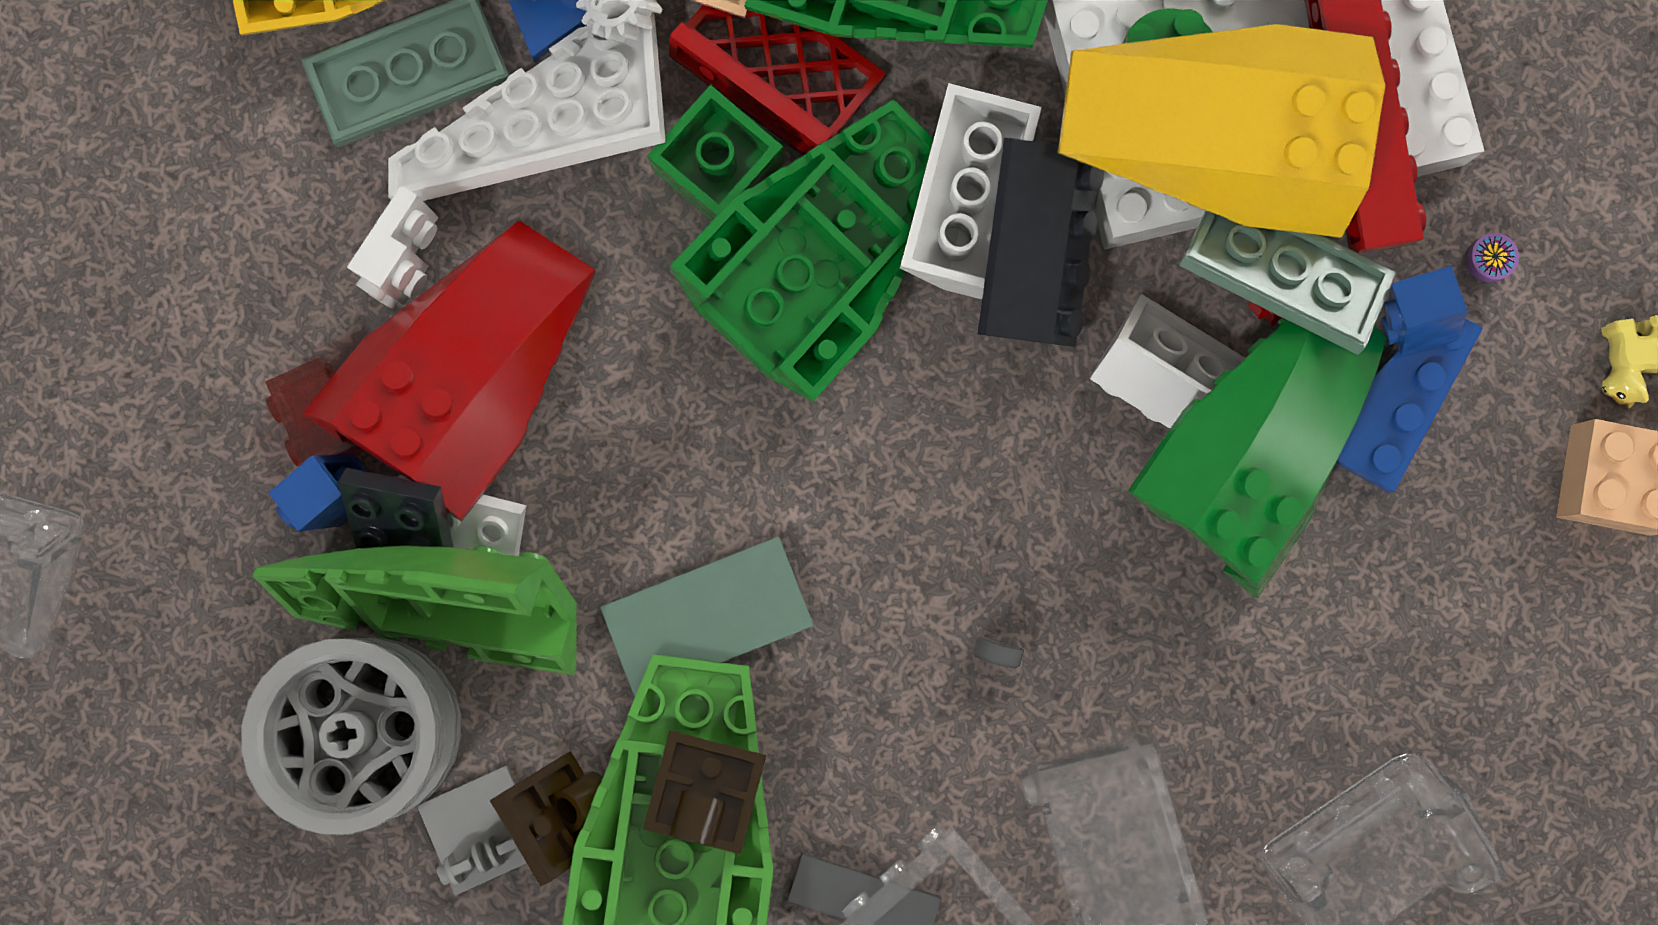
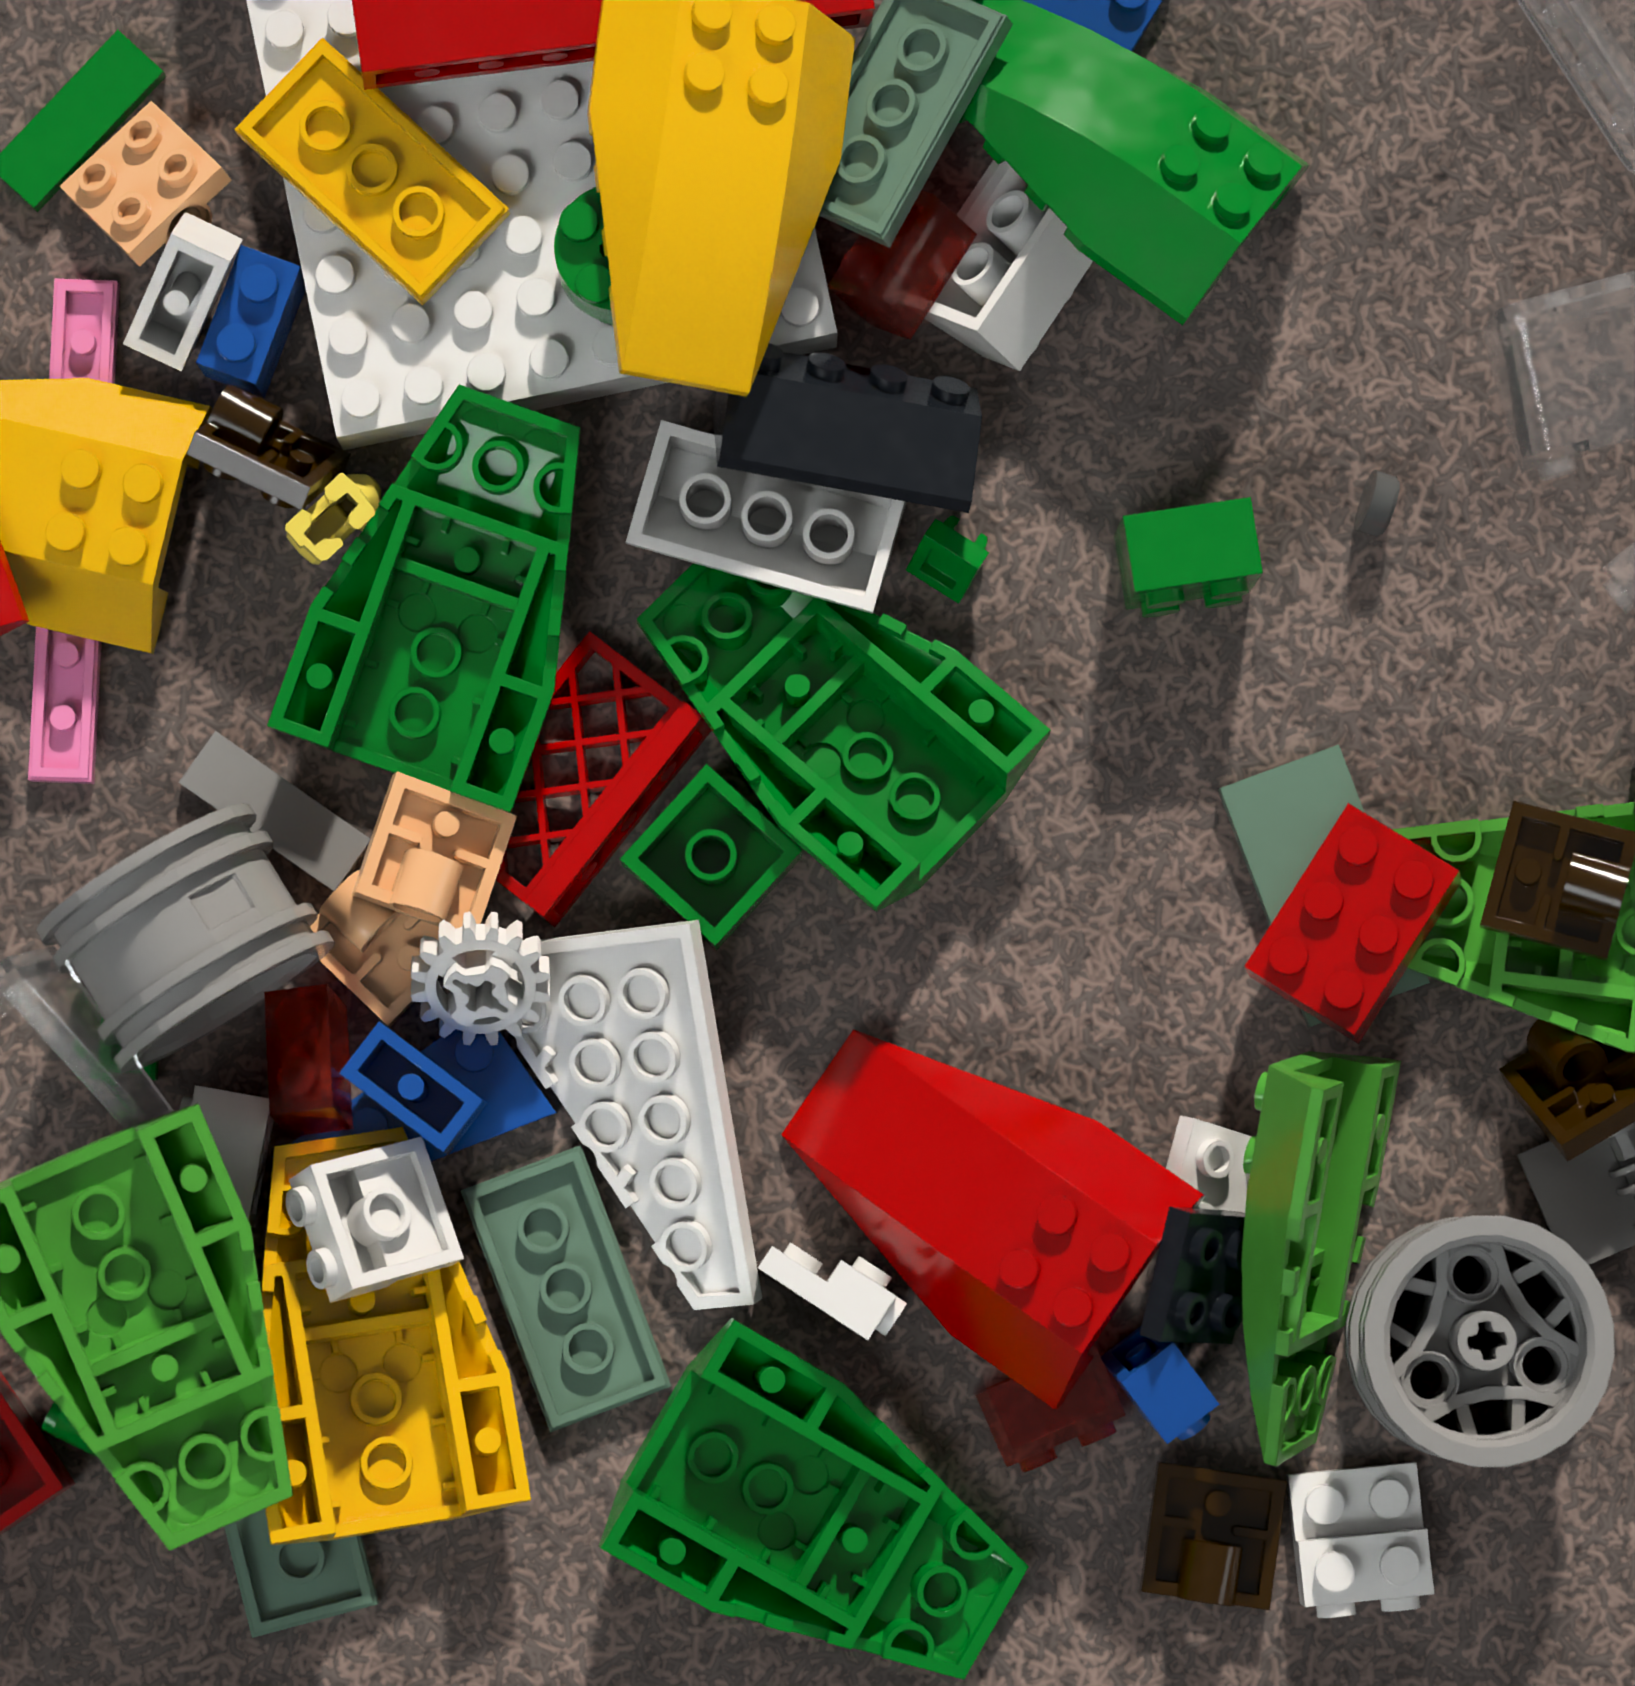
camera: 90 degrees left, 0 degrees up
(216, 647) = (1359, 1538): none -> white plate
(218, 538) = (1213, 1536): none -> dark brown plate
(231, 236) = (806, 1514): none -> green wedge
(671, 633) = (1353, 923): none -> red brick
(946, 329) = (948, 559): none -> green tile
(951, 504) = (1188, 556): none -> green brick
(1166, 292) = (901, 283): none -> clear red brick

